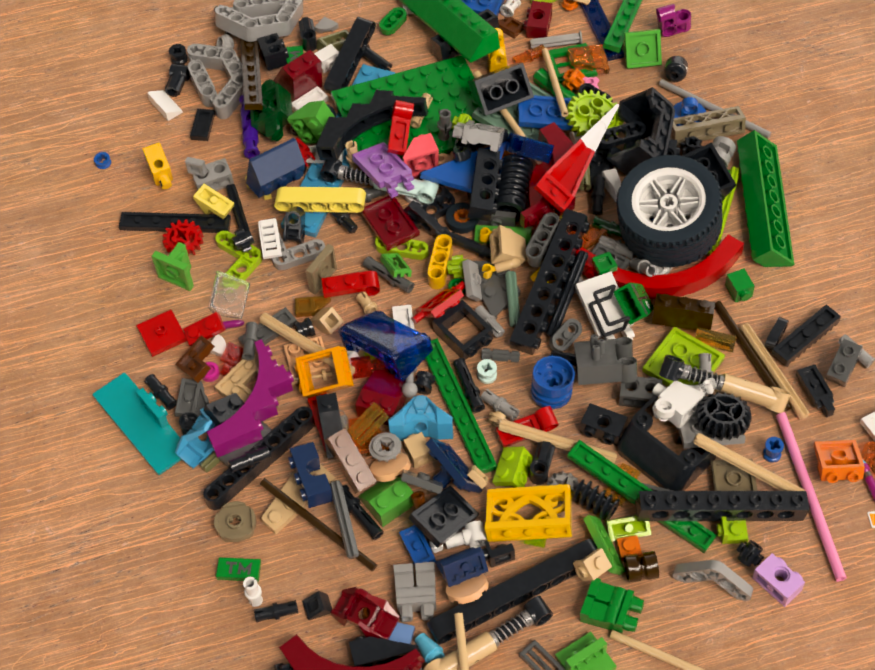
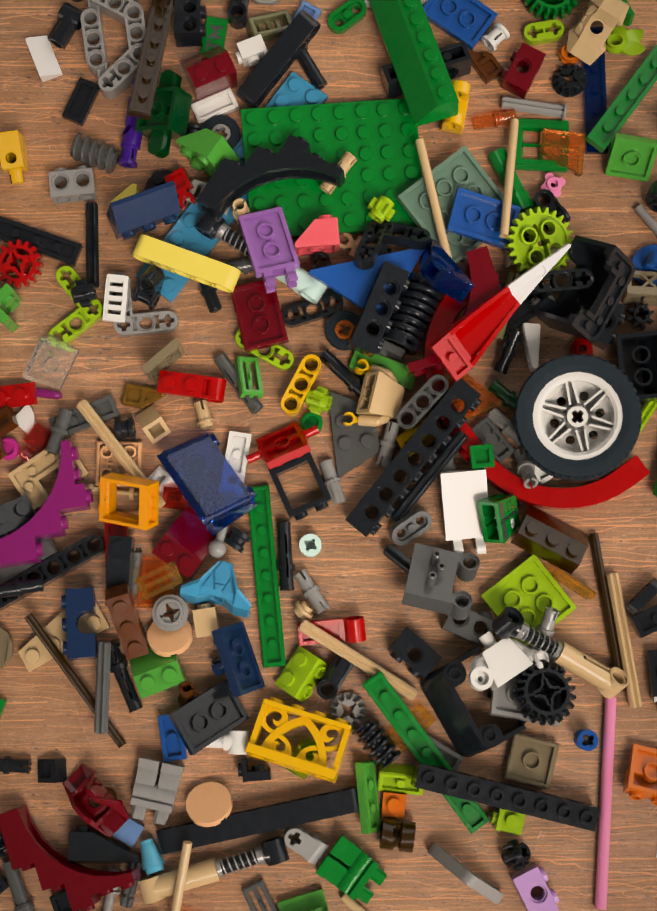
camera: 10 degrees right, 25 degrees up
(196, 166) = (53, 175): light grey tile -> none
(212, 201) = (64, 226): light yellow slope -> none
(229, 151) = (94, 154): none -> dark grey piece
(400, 127) = (302, 200): red plate -> none
(422, 480) = (196, 671): dark grey plate -> none
(426, 221) = (303, 330): black hinge -> none
(444, 124) = (360, 208): dark grey pin -> none
(462, 566) = (210, 778): dark blue bracket -> none
(472, 280) = (328, 427): light grey plate -> none
(478, 476) = (259, 676): tan tile -> none
(479, 133) = (392, 241): light grey hips -> none
(500, 355) = (332, 527): dark grey axle -> none
(501, 88) = (439, 178): black slope -> none
(512, 297) = (366, 462): sand green axle -> none
(525, 283) = (388, 444): none -> light grey pin
(552, 382) = (388, 587): blue wheel -> none
(564, 599) = (308, 847): none -> light grey piece
(573, 79) = (534, 175): orange gear -> none
(580, 22) = (572, 88): none -> black gear
(592, 565) = (345, 827): tan bracket -> none
(598, 301) = (452, 525): black piece -> none
(739, 285) = (626, 523): green brick -> none
(744, 464) = (549, 760): tan axle -> none

